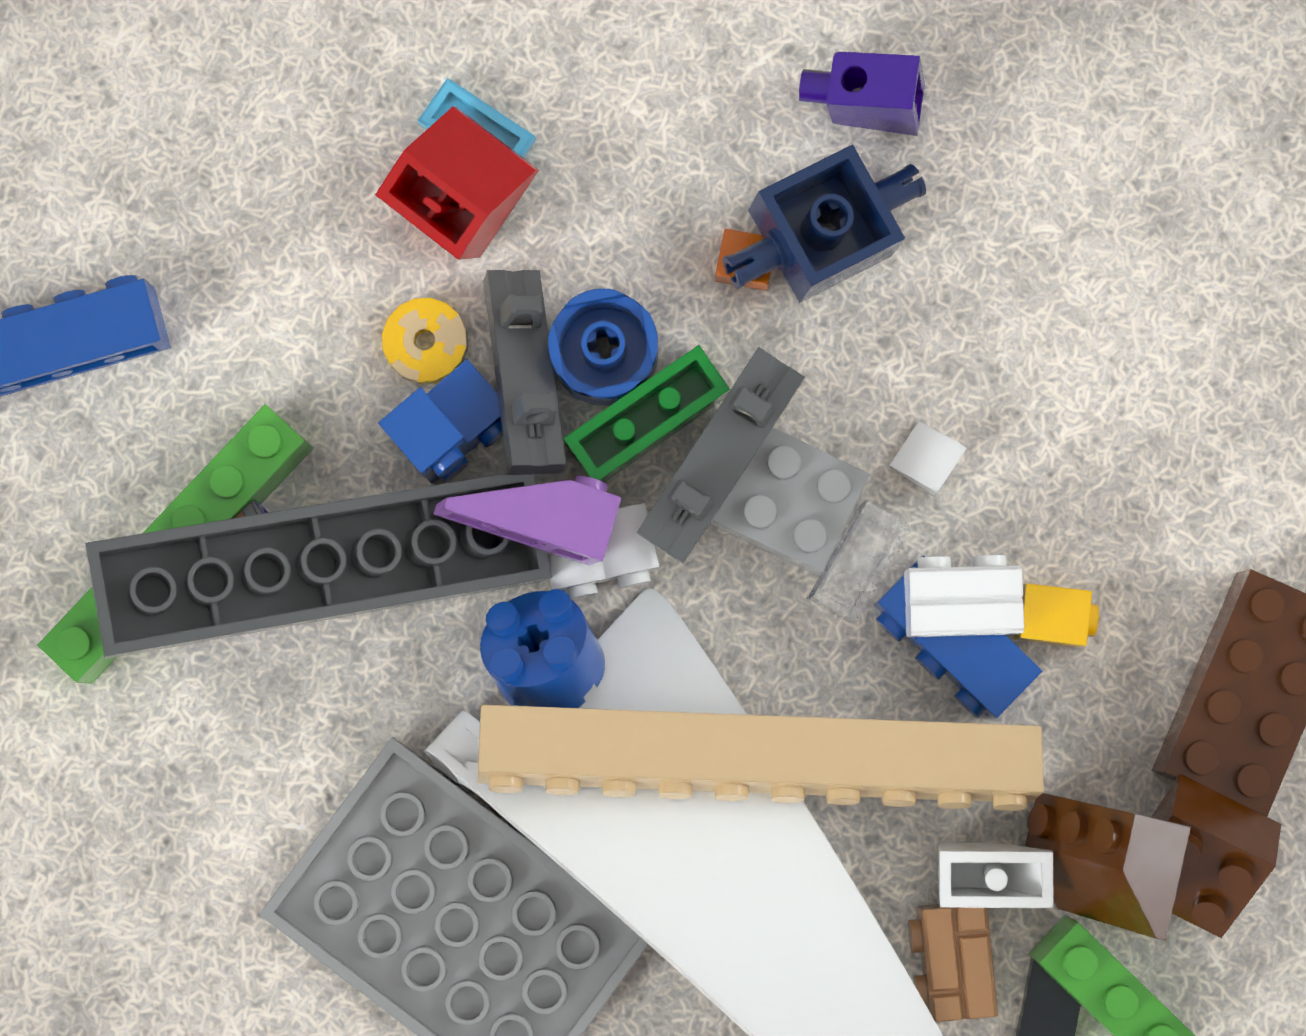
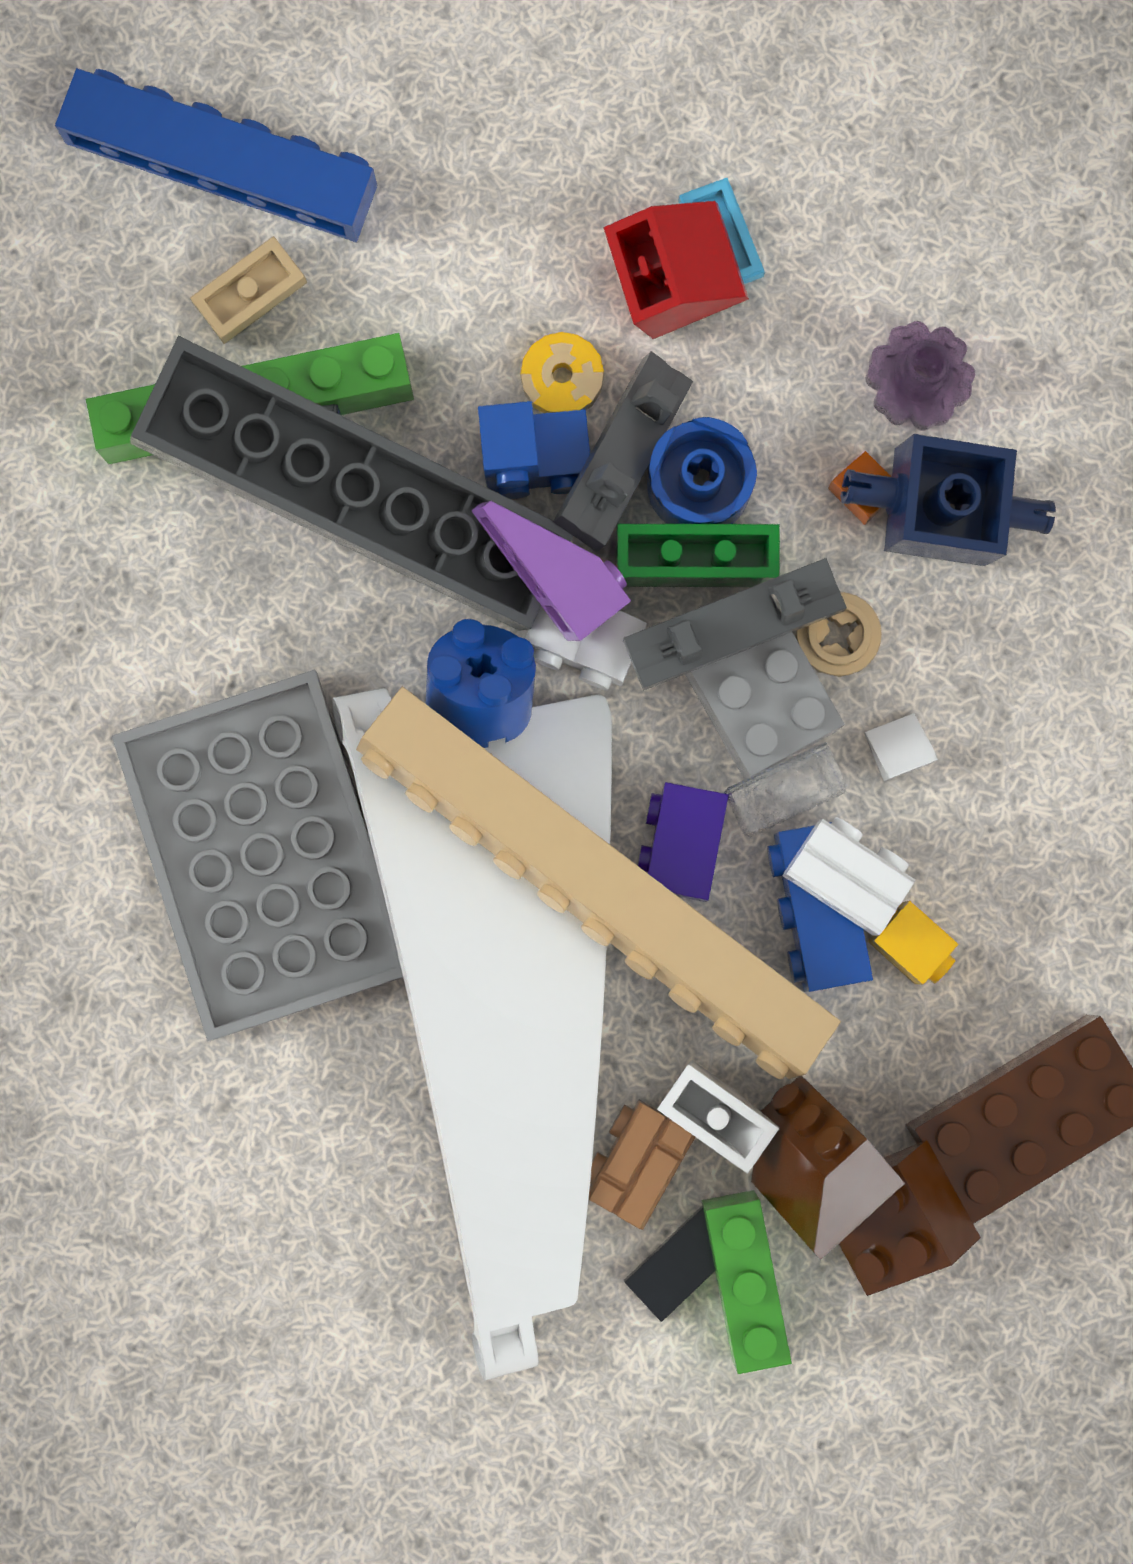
camera: 30 degrees right, 0 degrees up
(108, 453) = (248, 290): none -> tan plate
(721, 158) = (908, 395): none -> clear purple plant
(803, 664) = (684, 839): none -> dark purple brick
(834, 390) = (862, 642): none -> tan gear
(888, 96) = (1061, 419): dark purple torso -> none

